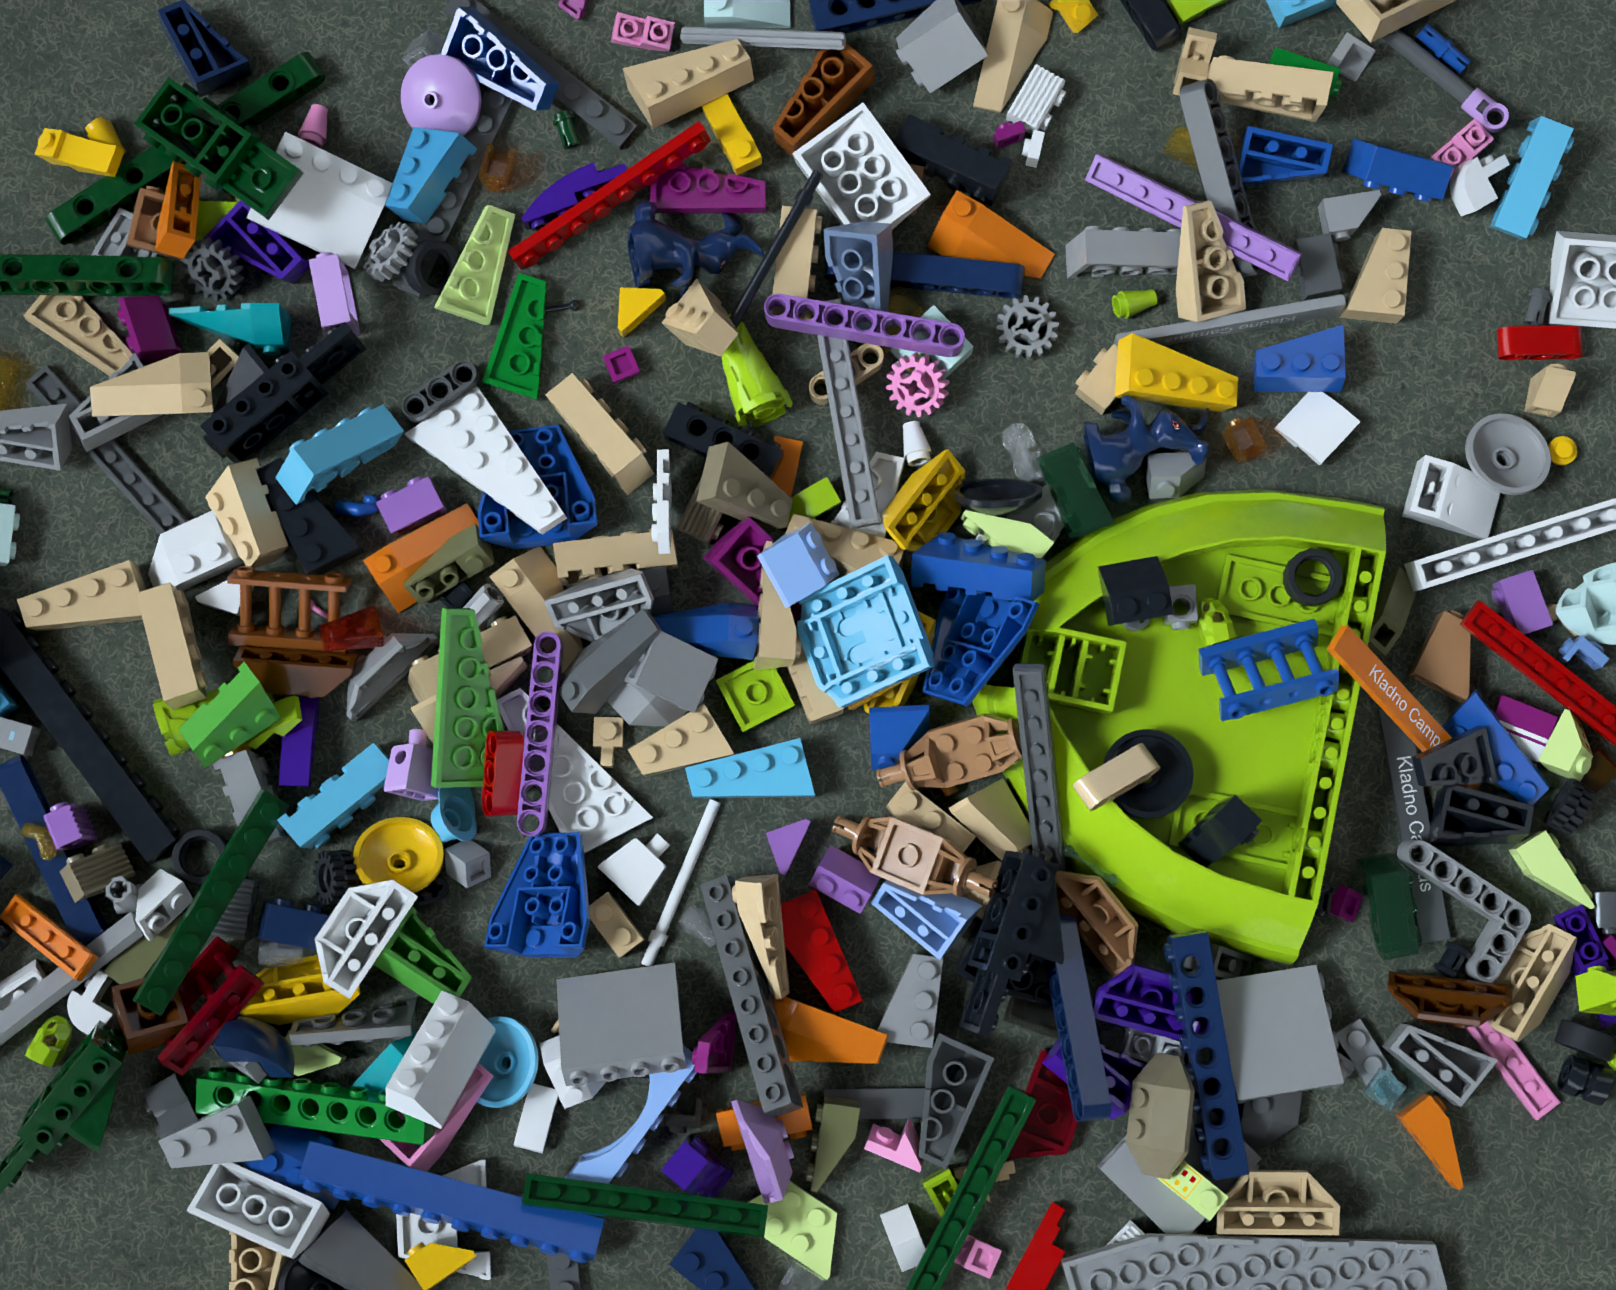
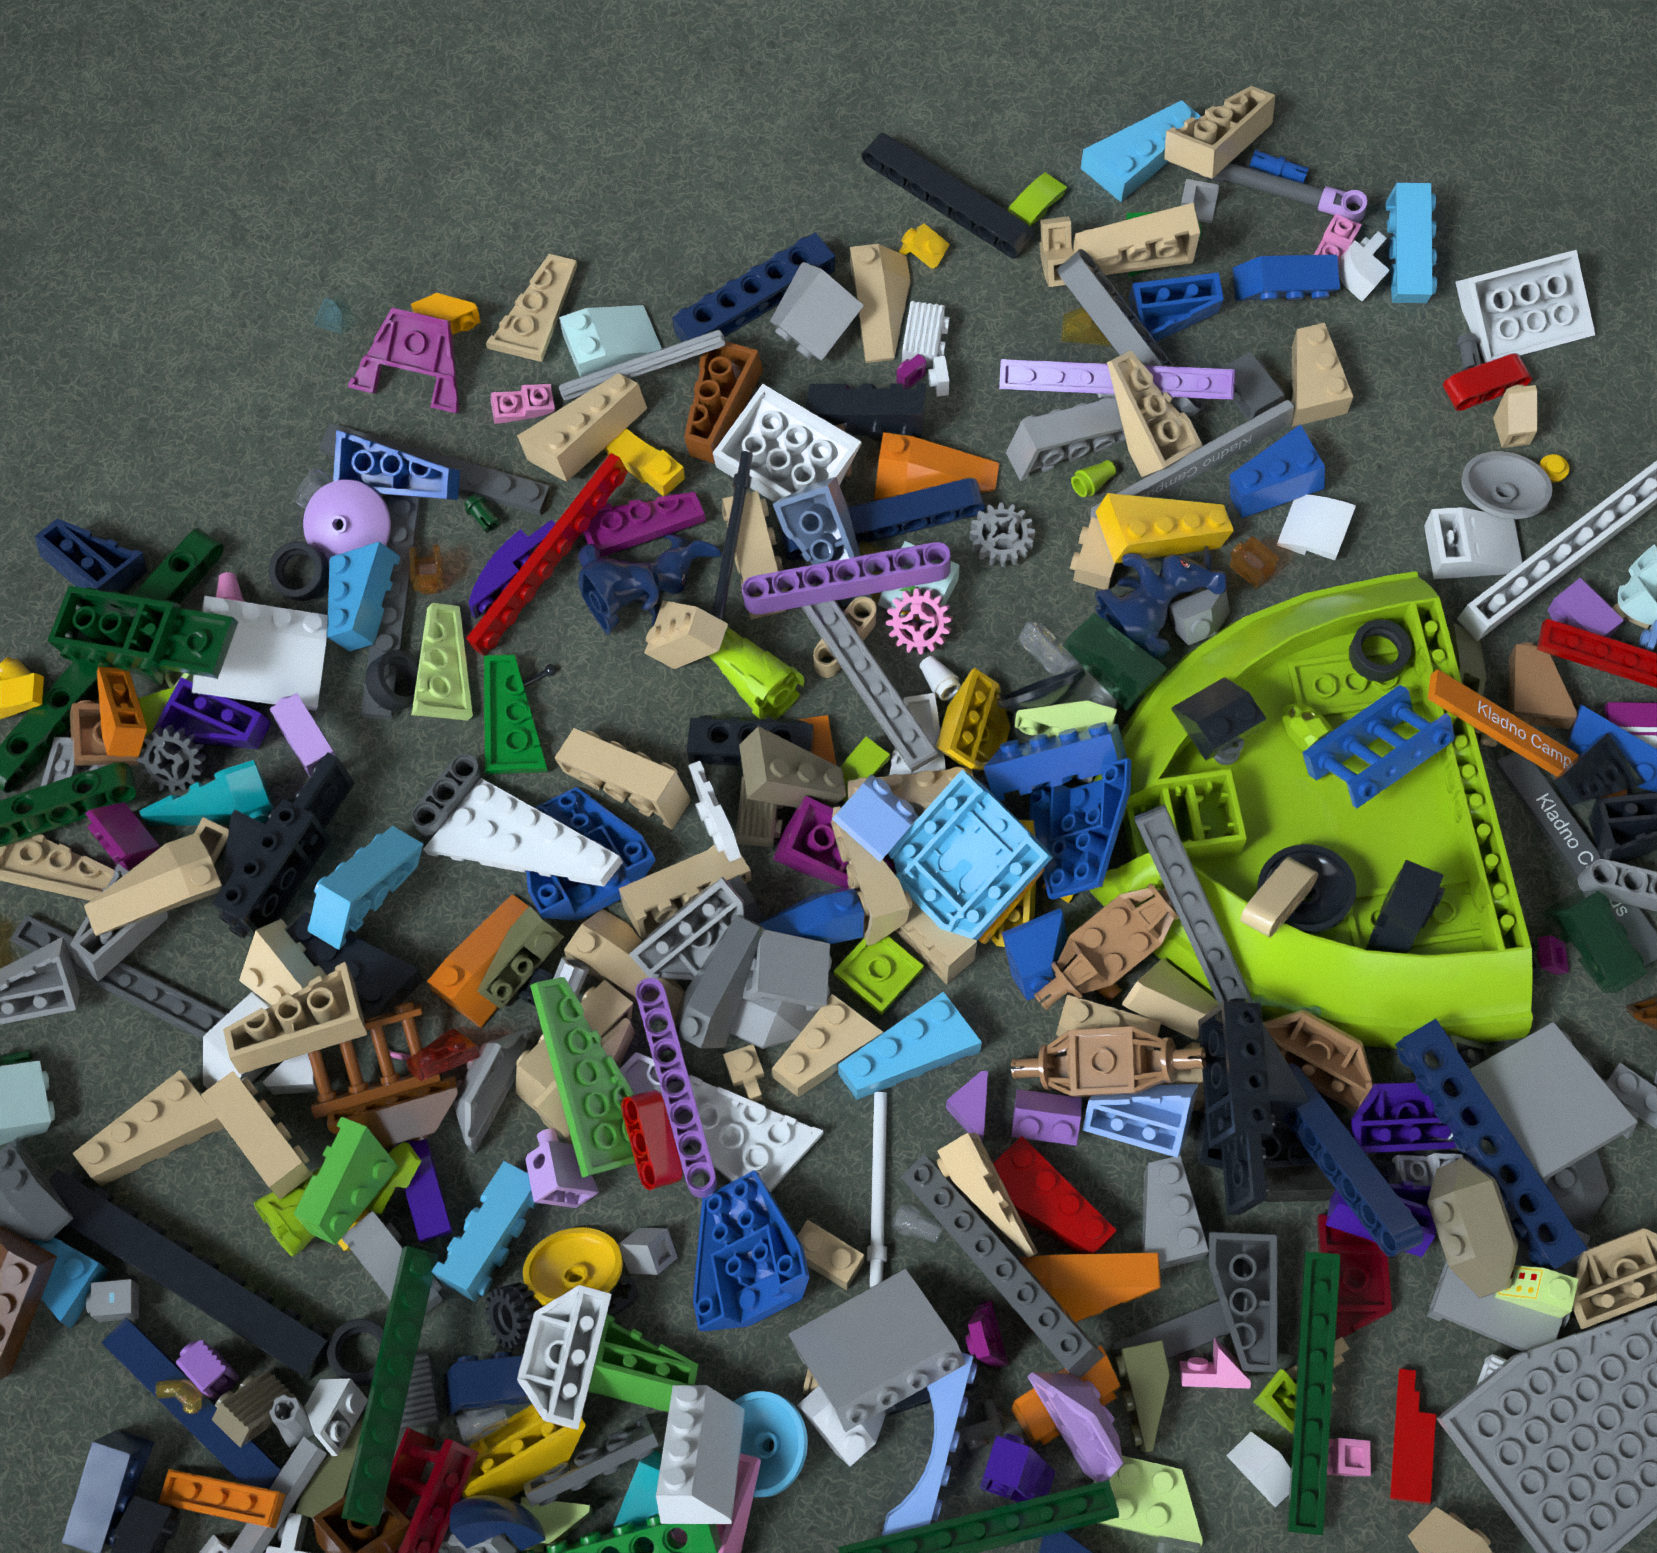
camera: 20 degrees left, 15 degrees down
(237, 565) = (298, 1024): none -> tan wedge
(357, 509) = (403, 938): blue arm -> none
(362, 128) = (281, 558): none -> black tyre
(390, 251) = (347, 679): light grey gear -> none
(411, 506) = (456, 915): medium lavender brick -> none
(454, 814) = (614, 1204): medium azure piece -> none
(536, 1118) = (823, 1493): white slope -> none
(621, 364) = (619, 707): magenta plate -> none
(636, 306) = (613, 647): yellow slope -> none
(636, 867) = (826, 1188): white torso -> none
(1187, 595) = (1271, 735): light grey brick -> none
(1345, 213) = (1255, 331): light grey slope -> none

